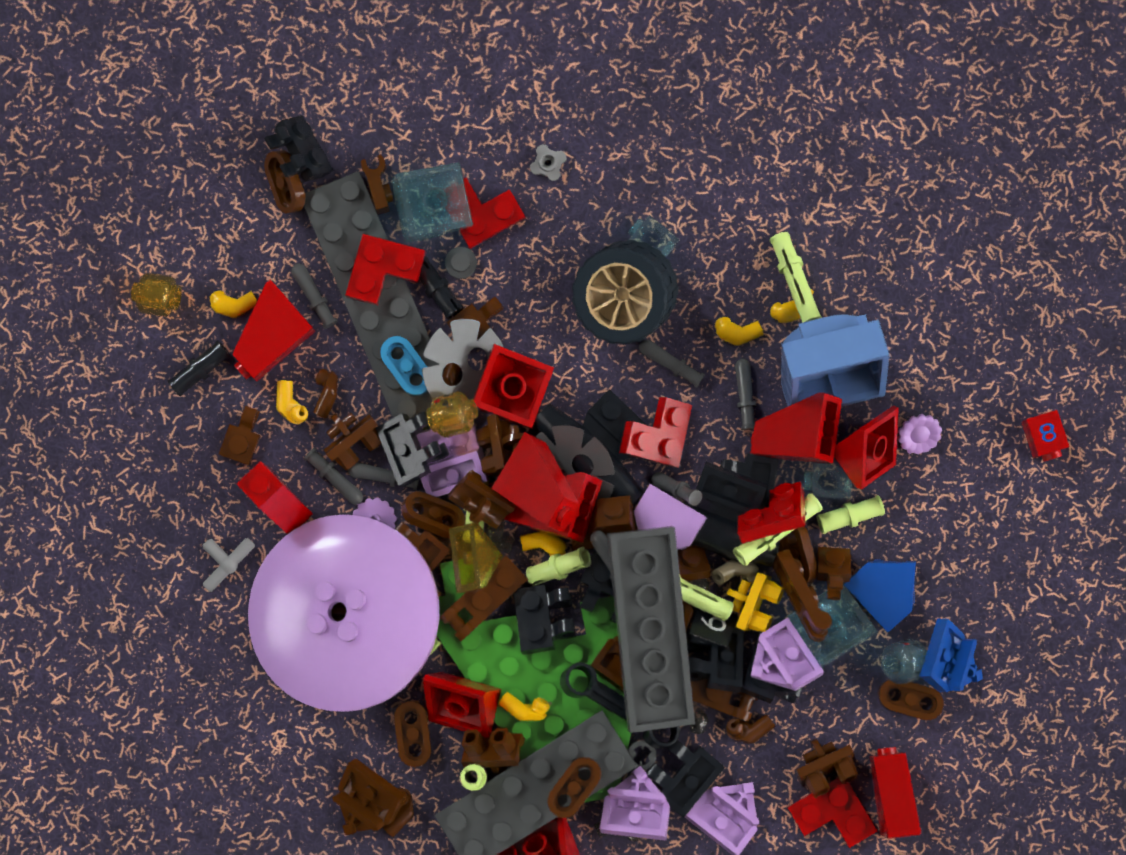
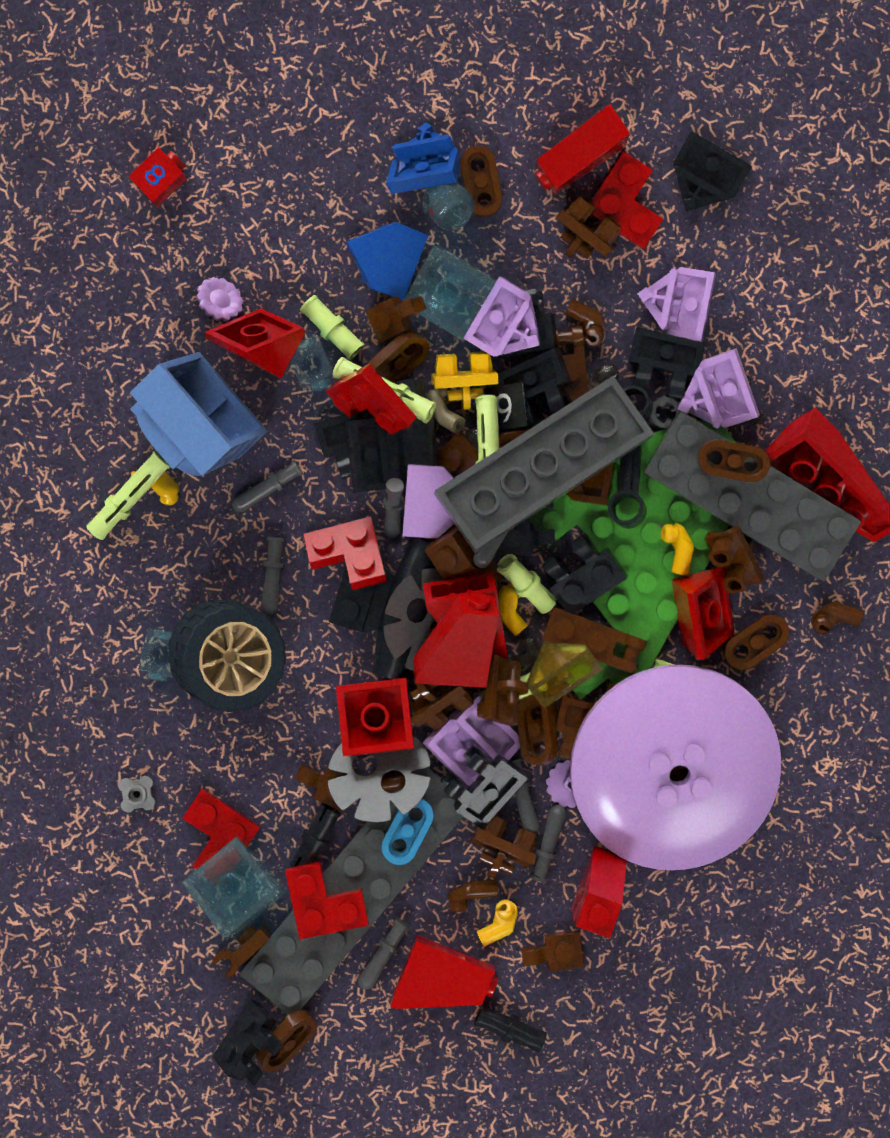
camera: 115 degrees left, 5 degrees up
(156, 294) = (460, 1107): clear yellow head -> none
(227, 563) = (683, 903): light grey piece -> none
(230, 306) = (434, 1028): yellow arm -> none
(366, 799) = (840, 654): reddish brown slope -> none
(452, 414) = (433, 762): clear yellow head -> none
(460, 262) = (278, 828): dark grey plate -> none
(465, 774) = (779, 563): yellowish green pin -> none
(736, 334) = (212, 526): yellow arm -> none
(800, 431) = (276, 415): red slope -> none
(802, 596) = (436, 334): reddish brown plate -> none

